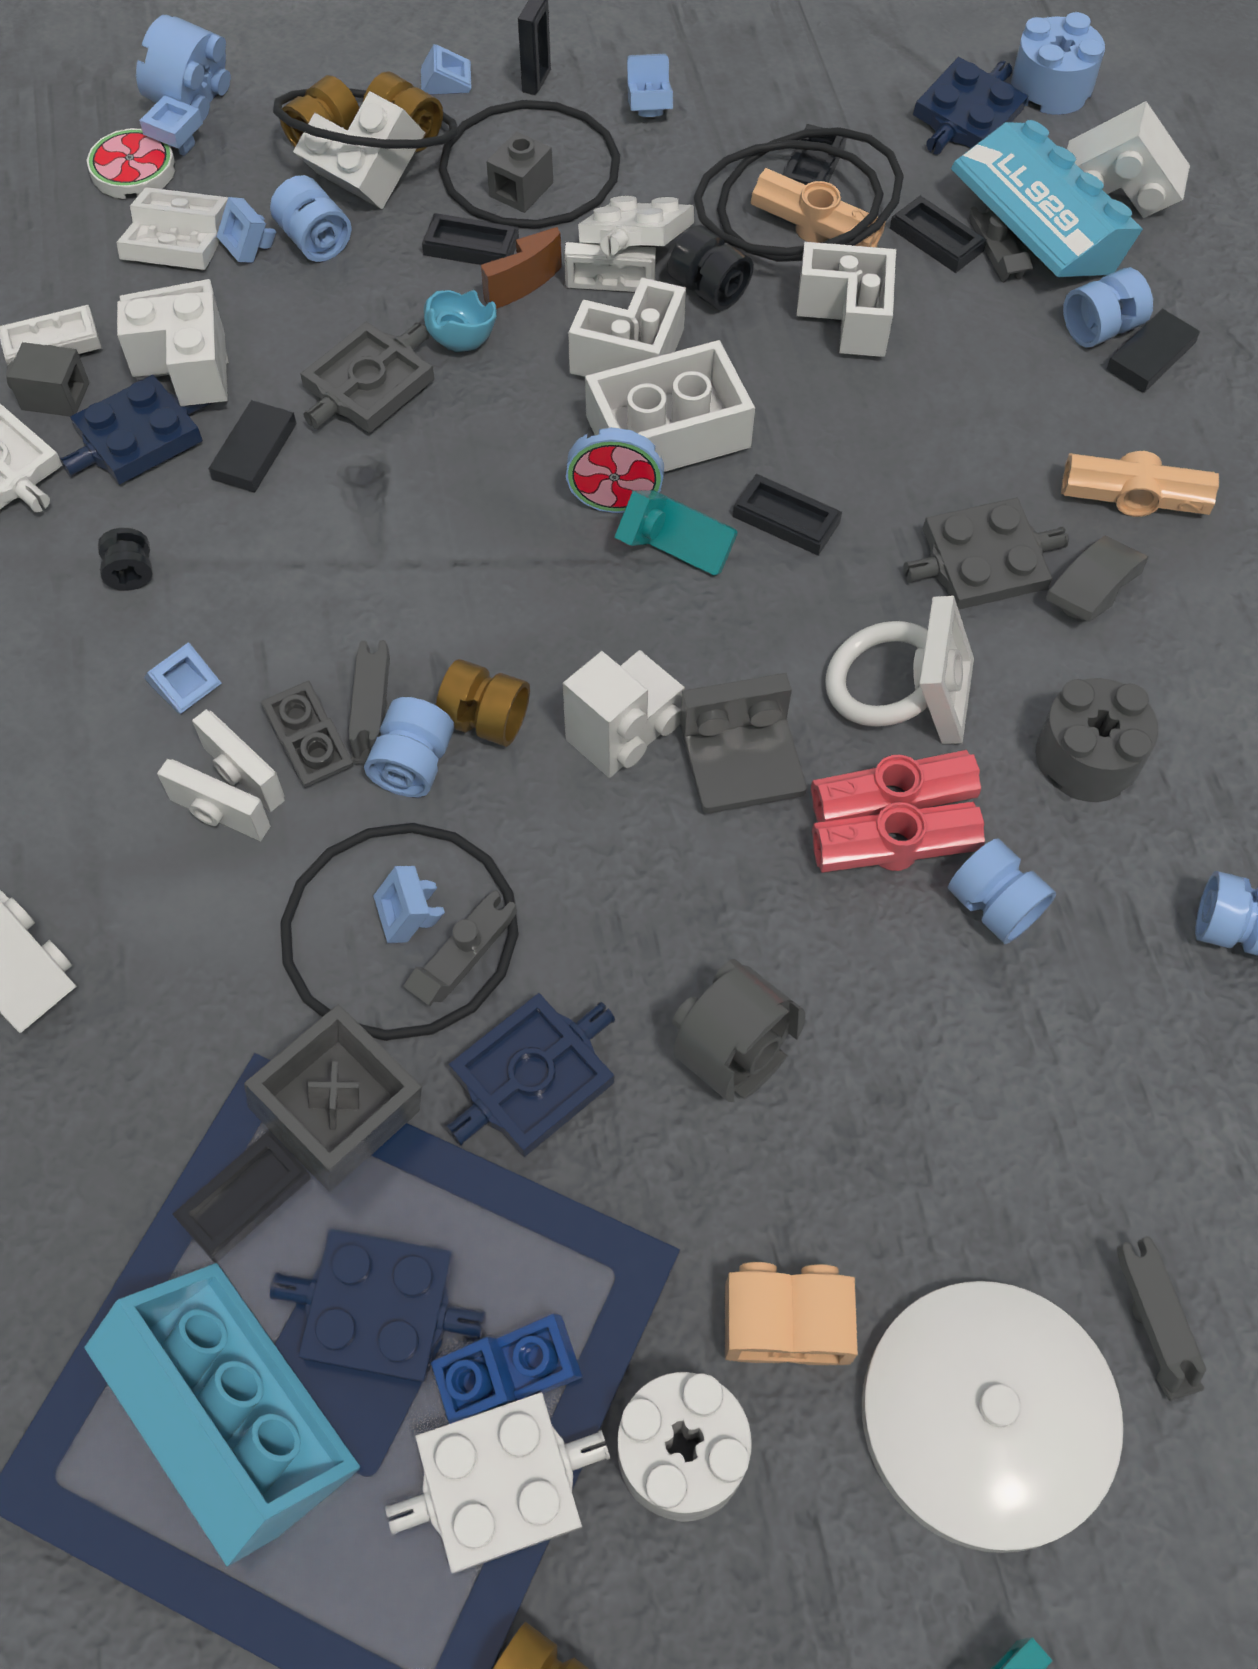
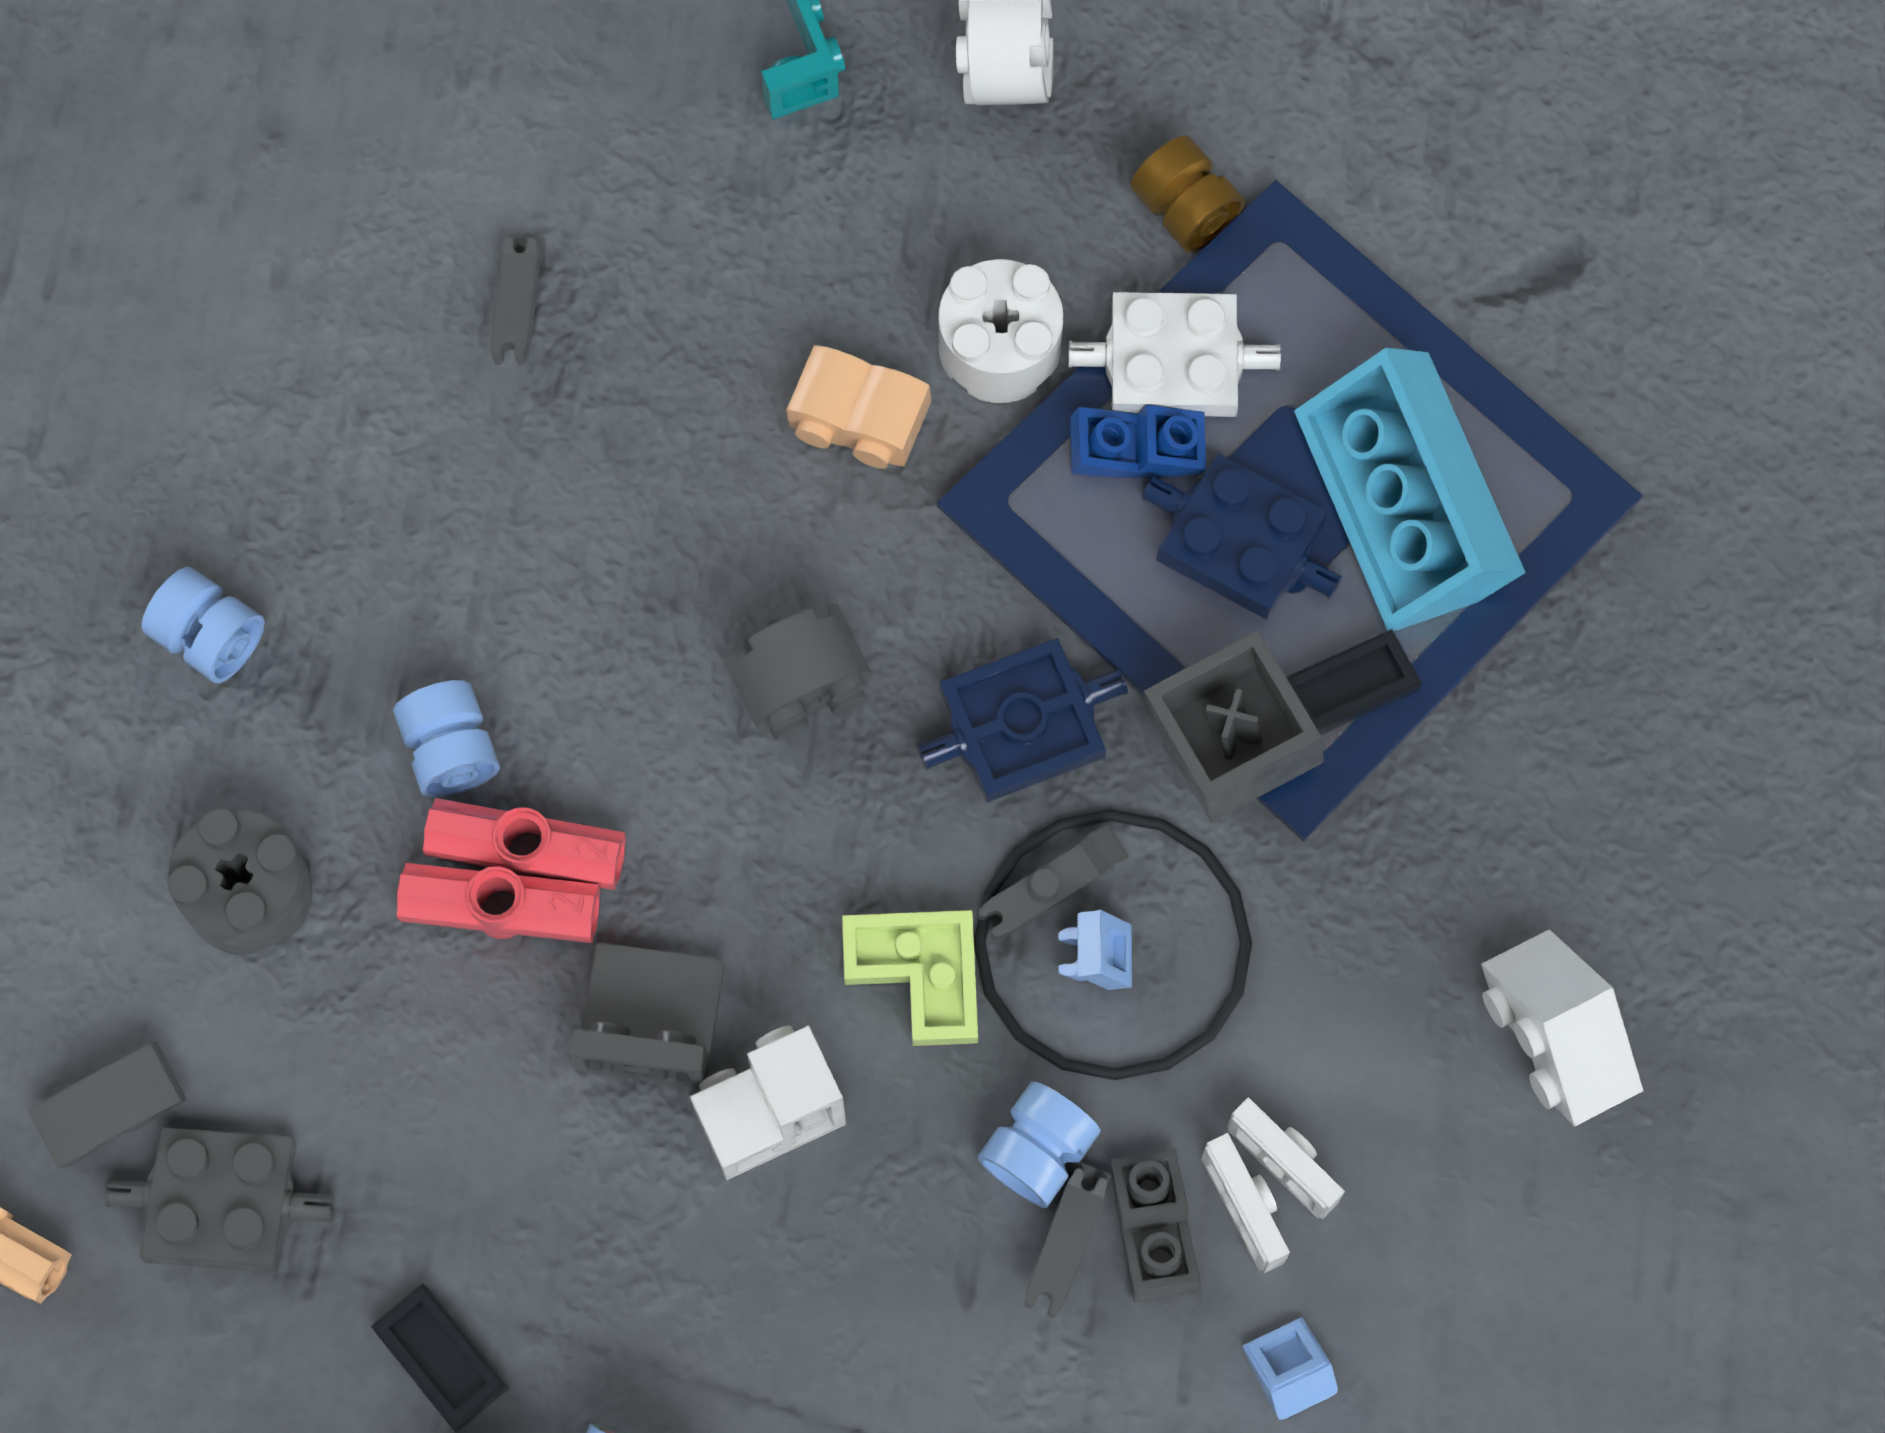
camera: 160 degrees left, 10 degrees up
(488, 704) = (933, 1177): pearl gold wheel -> none
(545, 862) = (929, 952): none -> yellowish green plate
(676, 530) = (593, 1365): teal bracket -> none
(940, 672) = (381, 1018): white tile -> none
(992, 1417) = (709, 281): white dish -> none

